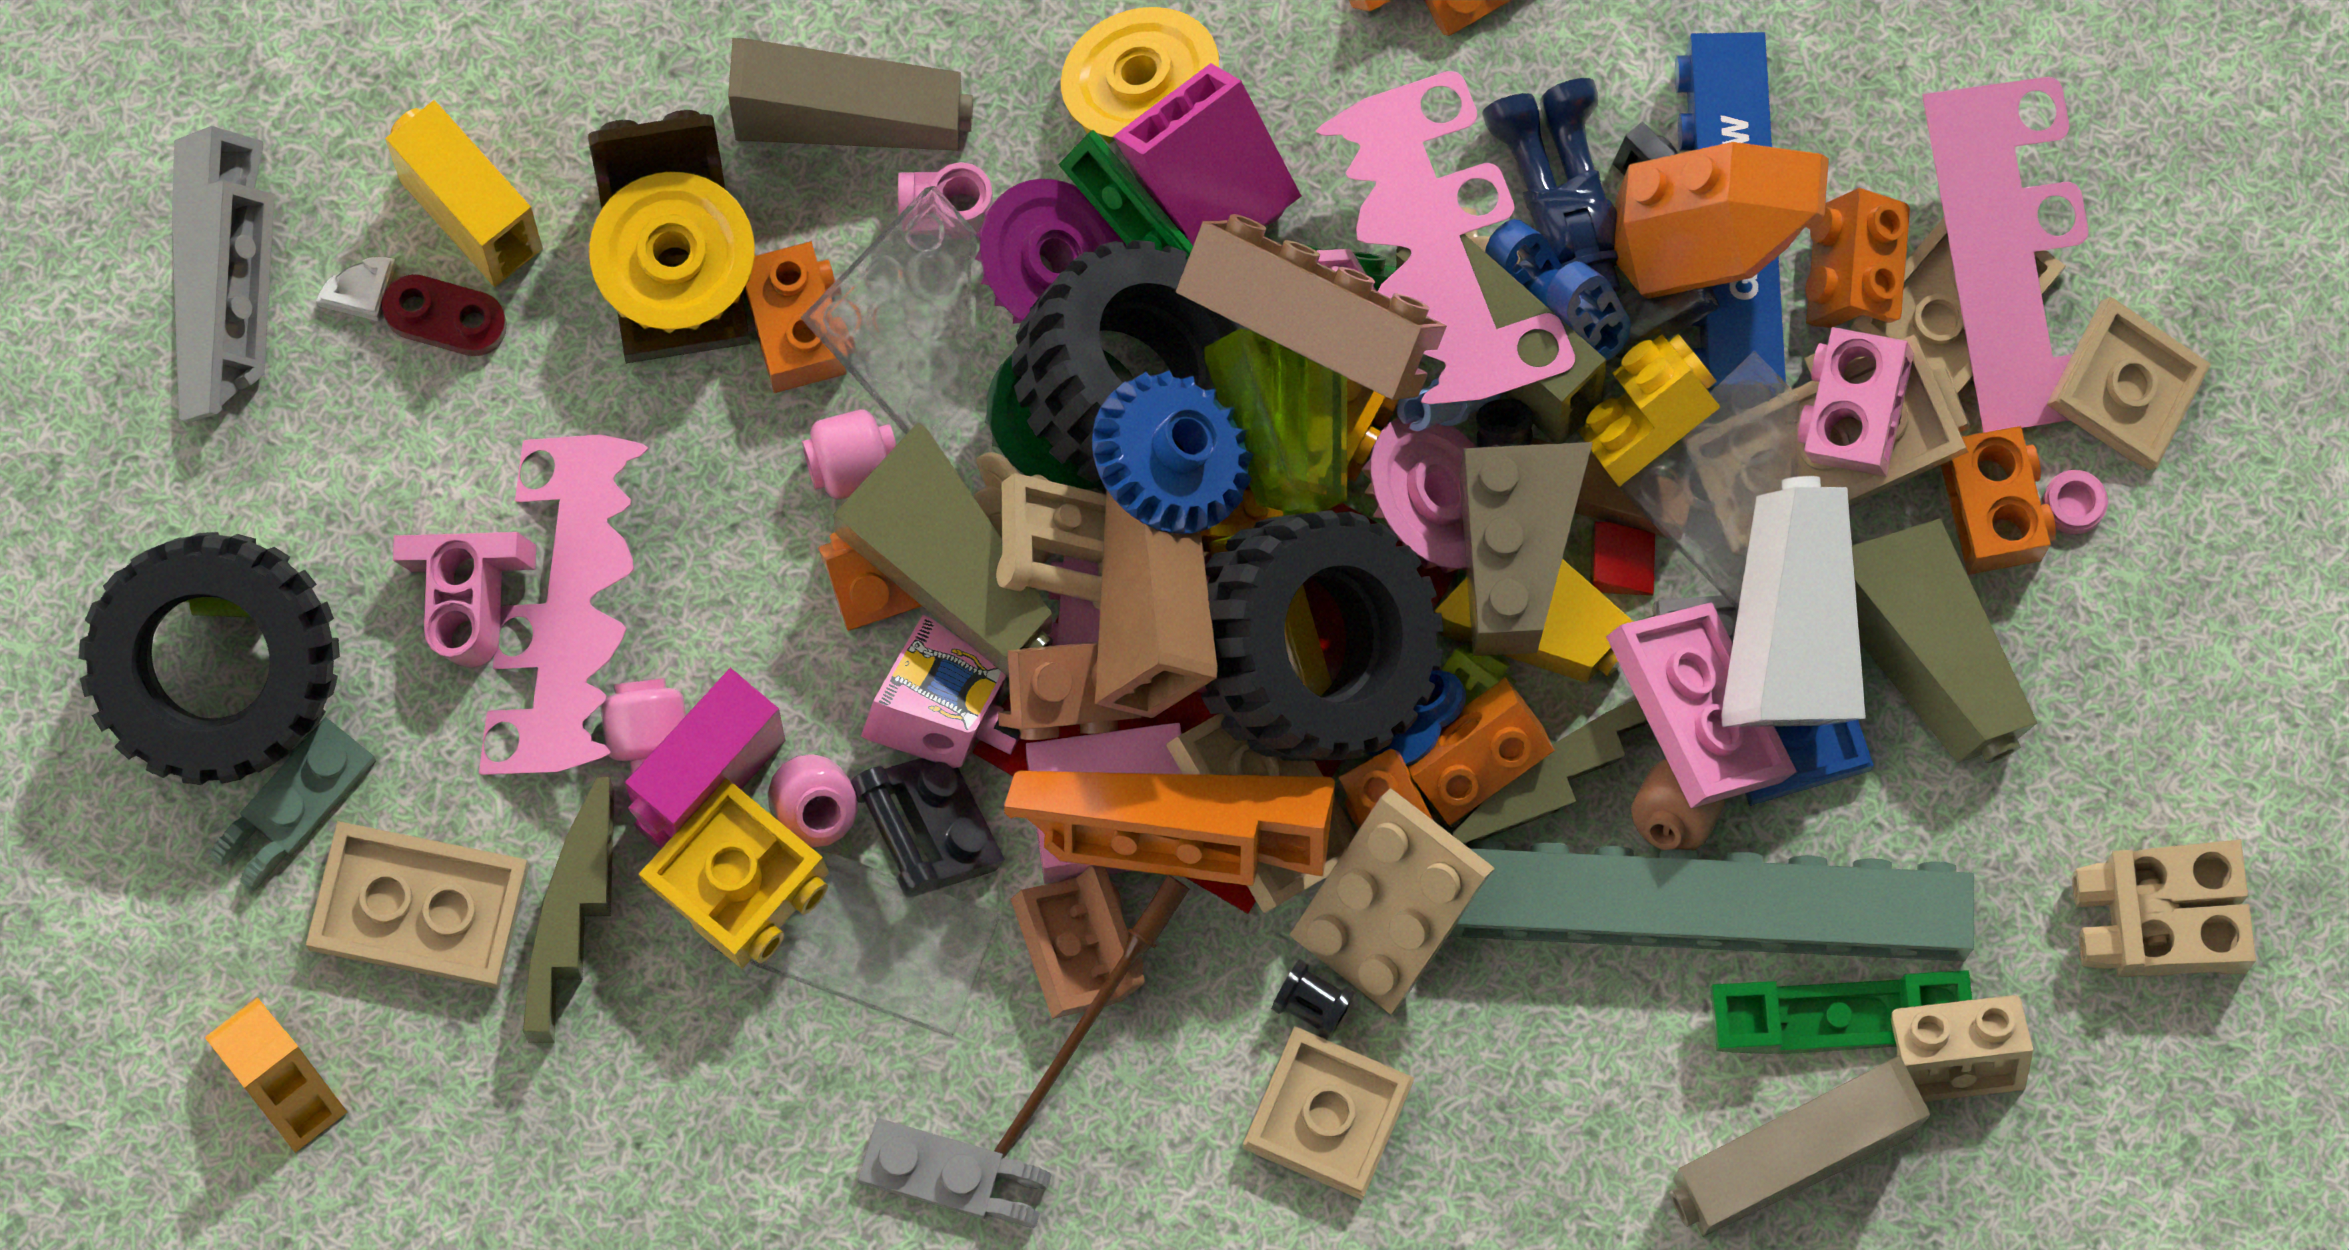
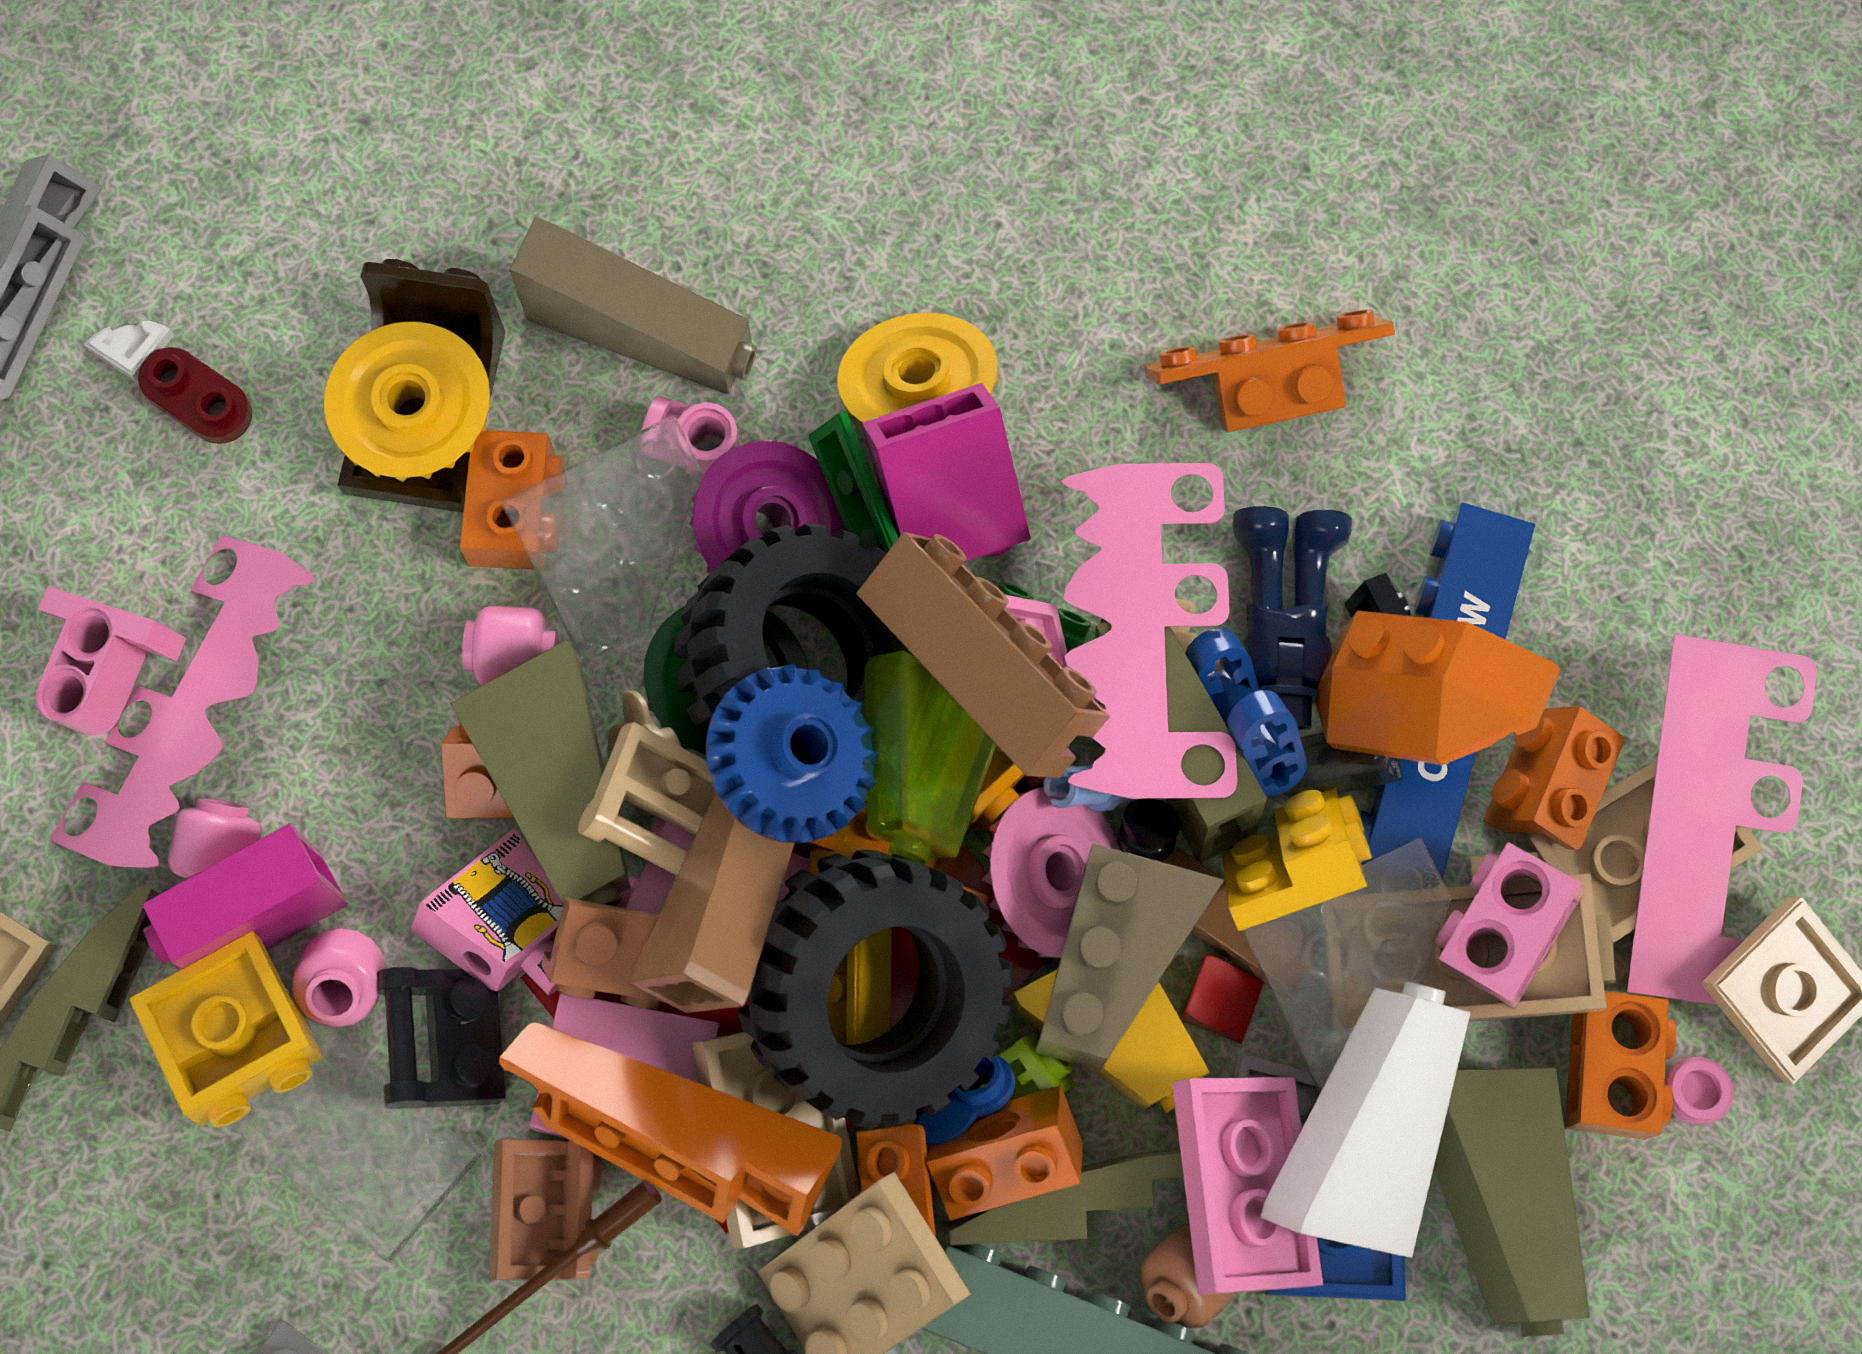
camera: 20 degrees right, 0 degrees up
(463, 192) = (243, 285): yellow brick -> none

